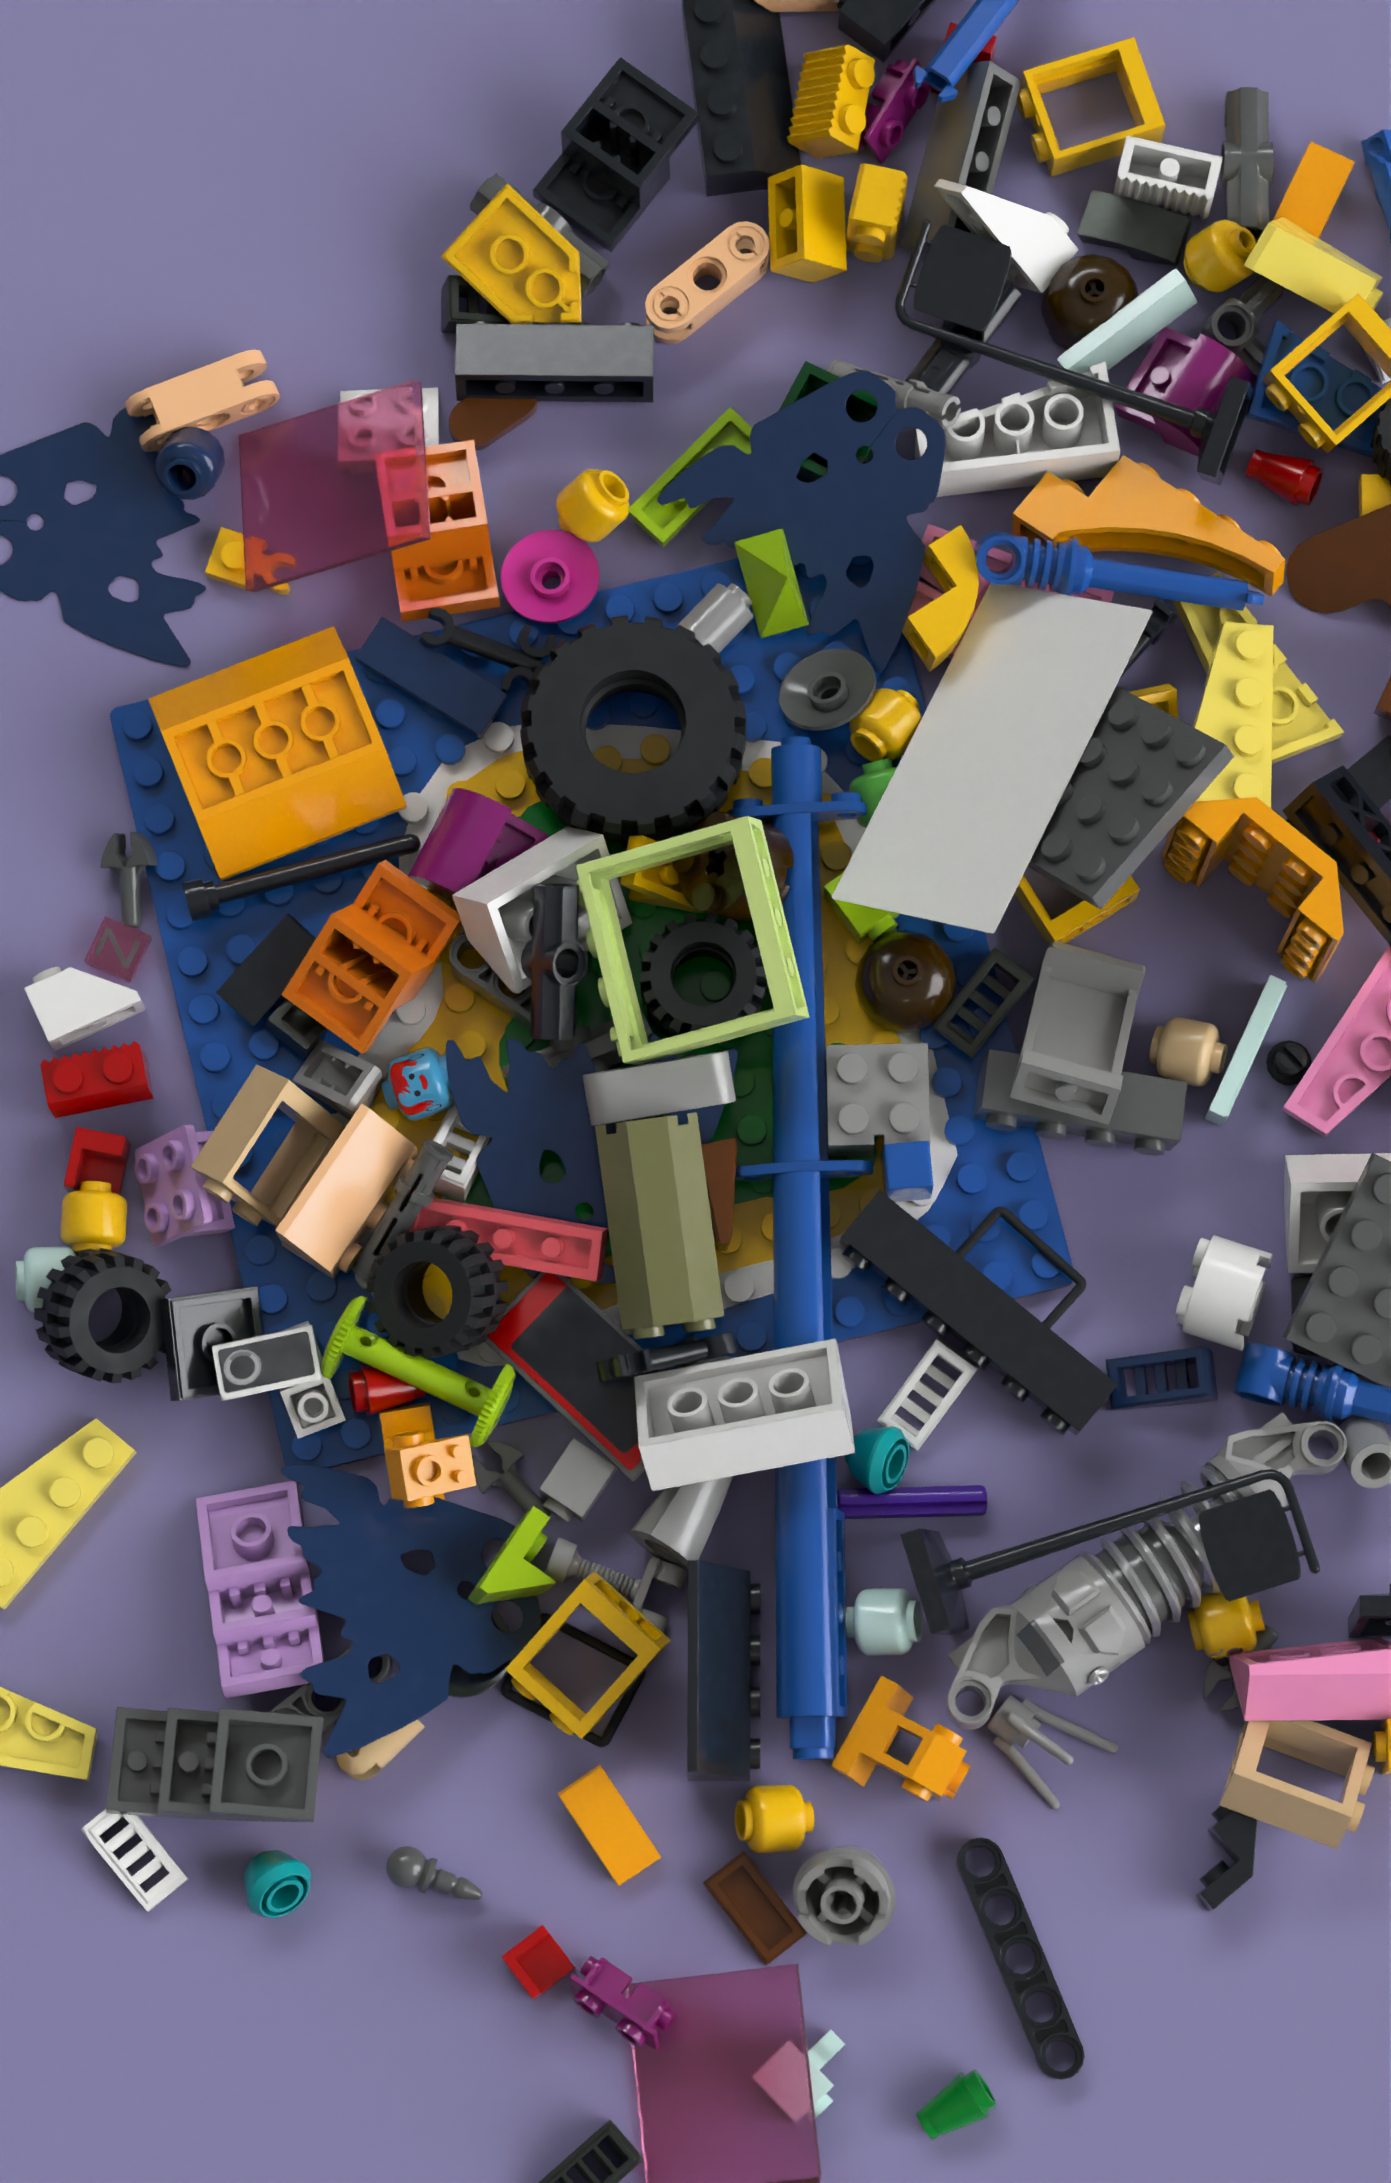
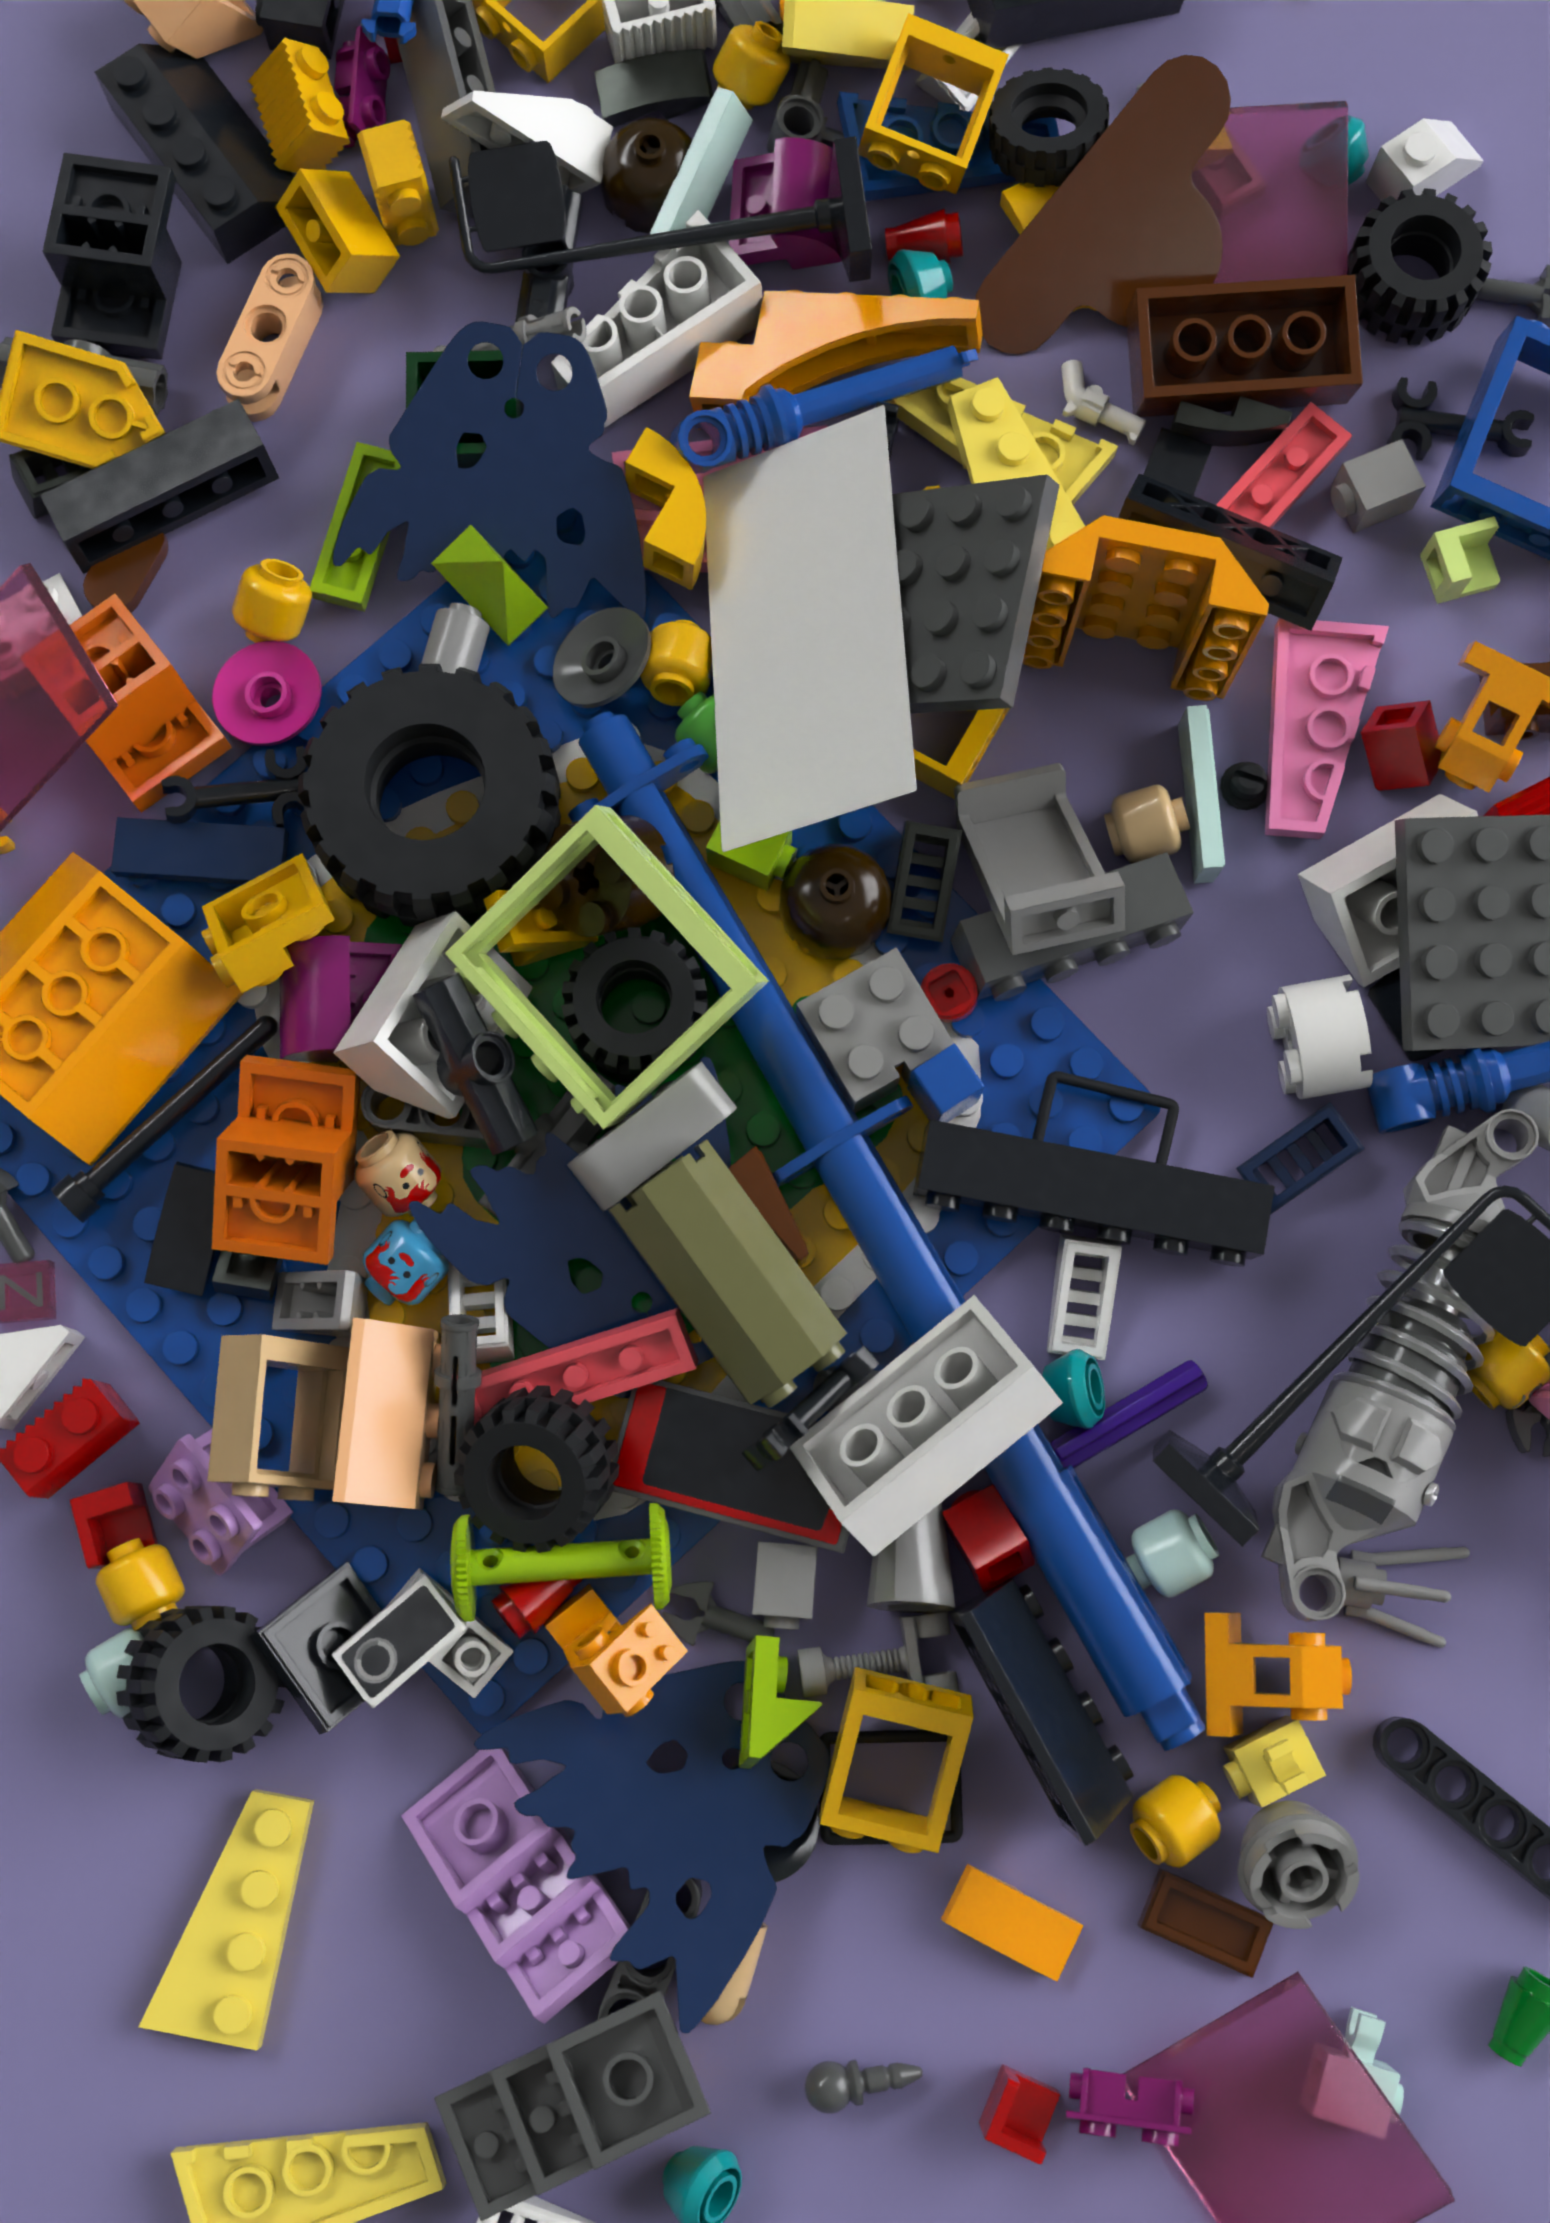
camera: 30 degrees left, 0 degrees up
(450, 1011) = (396, 1172): none -> tan head
(452, 761) = (261, 918): none -> yellow plate
(750, 1531) = (988, 1537): none -> red brick
(870, 1816) = (1271, 1762): none -> light yellow brick
(953, 1100) = (951, 991): none -> red tile
(1258, 509) = (919, 275): none -> teal cone
(1344, 686) = (1094, 406): none -> white piece

